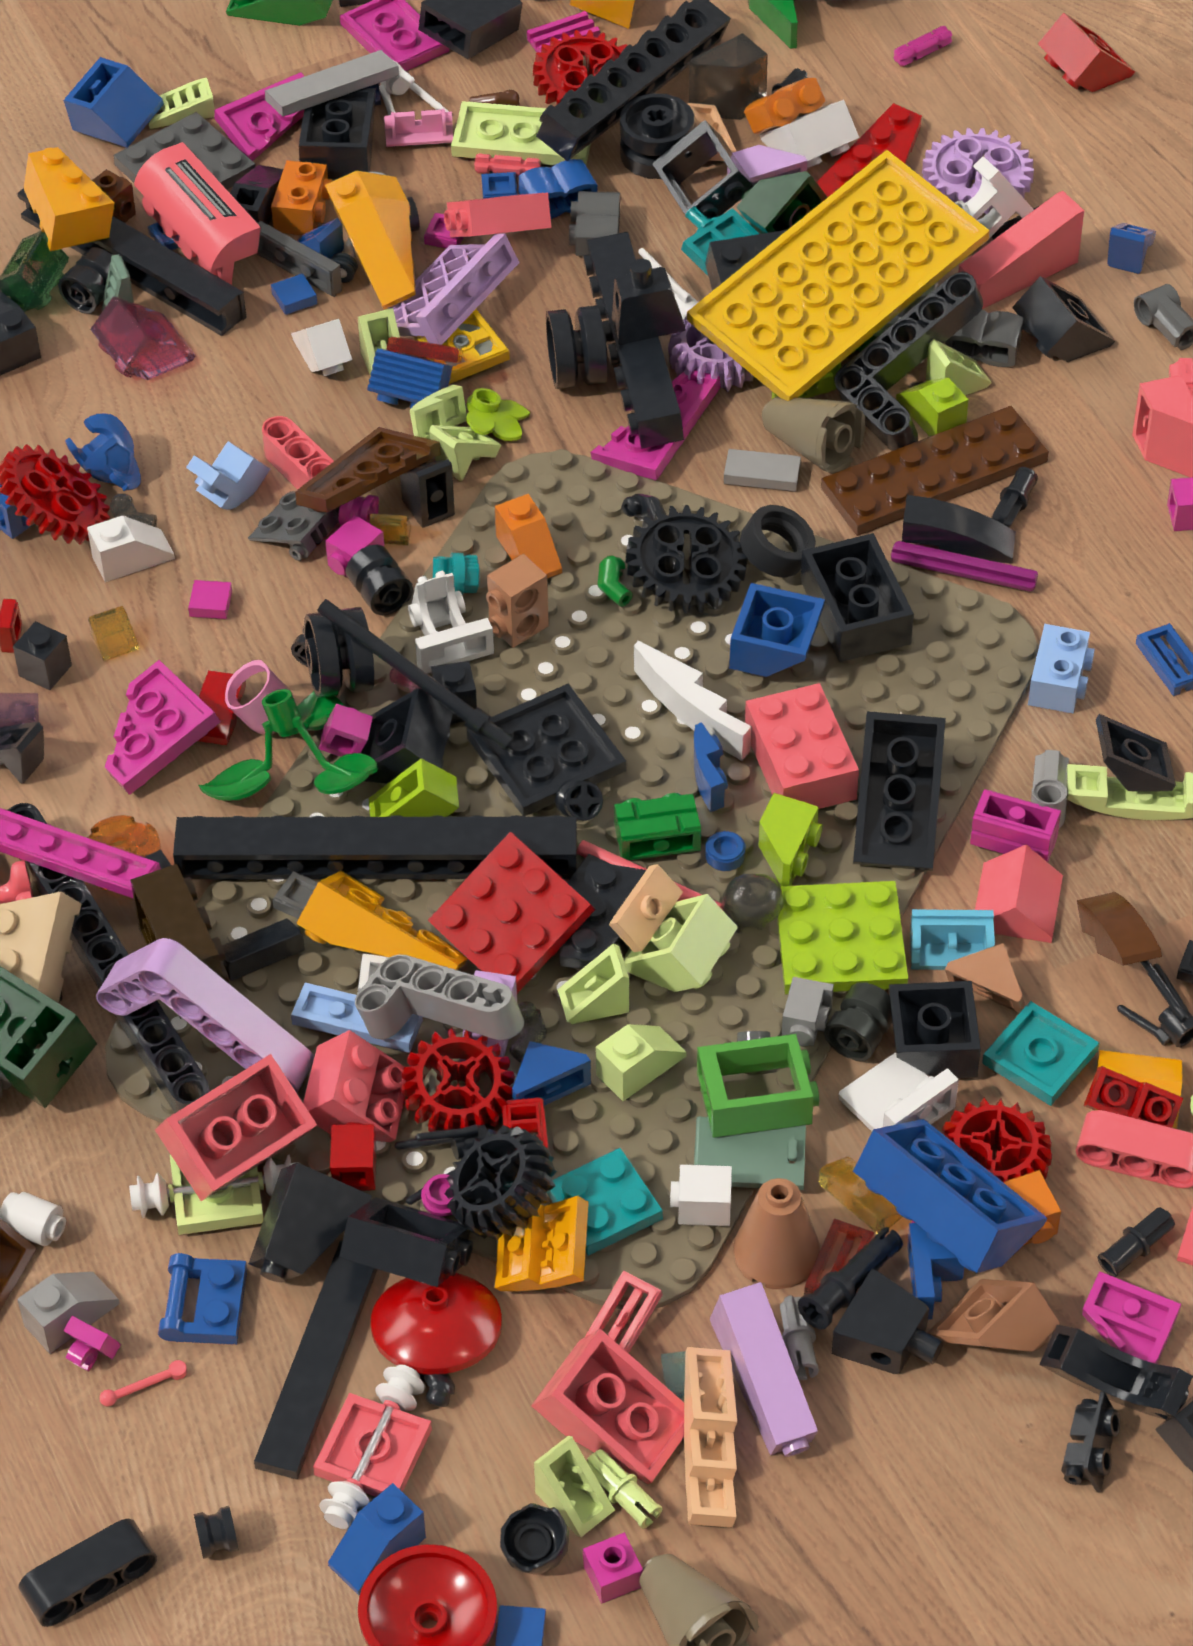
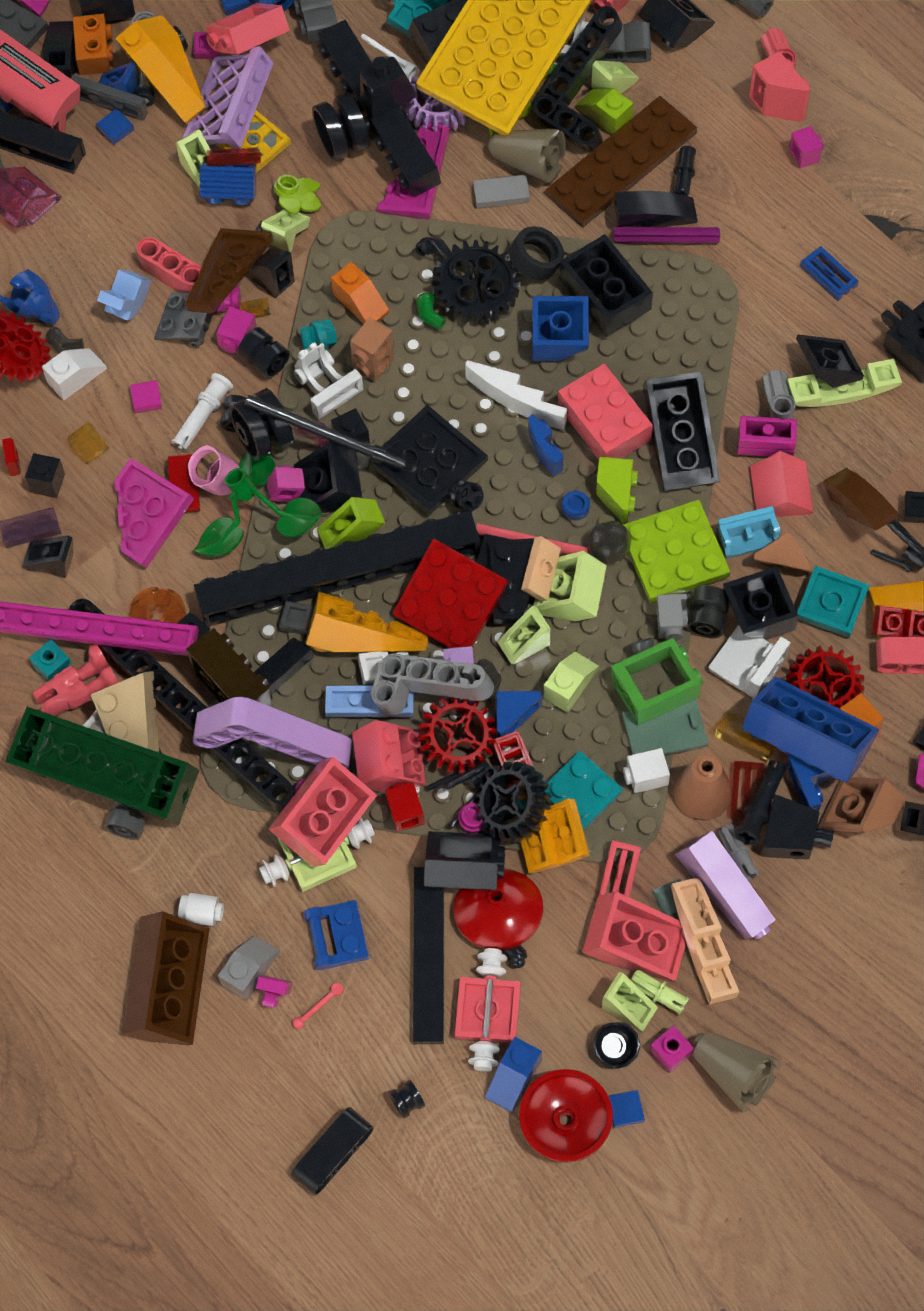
camera: 15 degrees left, 15 degrees up
(286, 622) = (208, 402): none -> white pin
(302, 1221) = (387, 864): black slope -> none
(323, 347) = (153, 167): white slope -> none
(440, 408) = (258, 205): yellowish green slope -> none
(657, 826) = (525, 500): green brick -> none
(1059, 669) = (757, 302): light blue brick -> none

